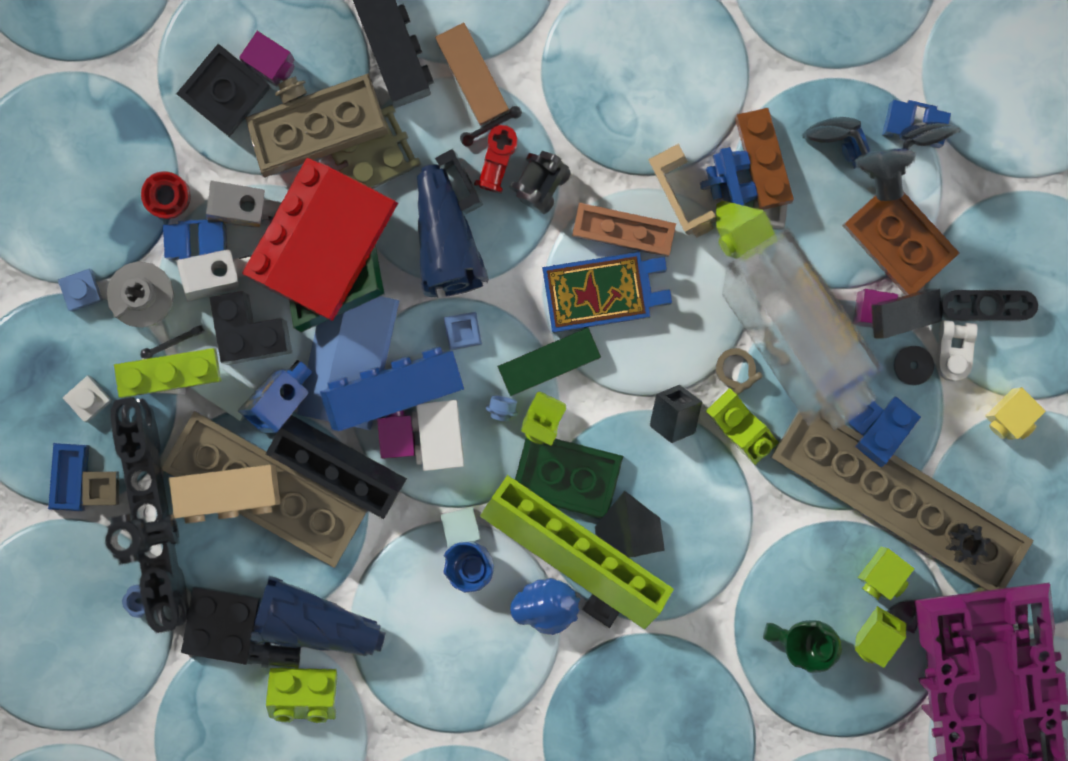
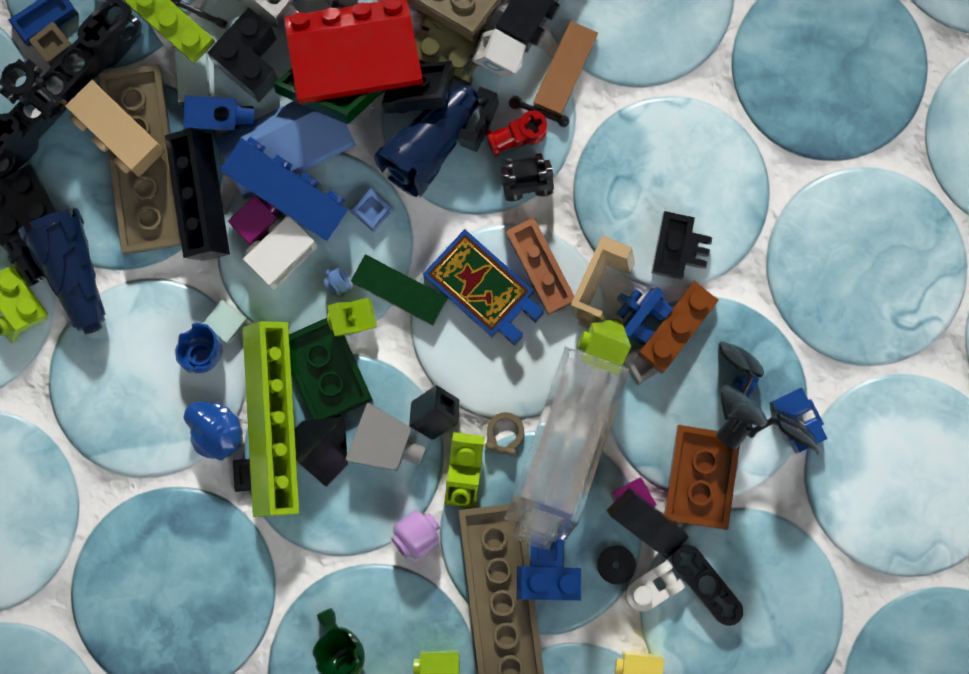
camera: 60 degrees right, 5 degrees down
(411, 207) = (426, 96): none -> black plate
(416, 118) = (499, 53): none -> white brick
(667, 474) = (383, 441): none -> light grey torso
(697, 104) = (678, 246): none -> black hinge
(764, 507) = (415, 534): none -> lavender head

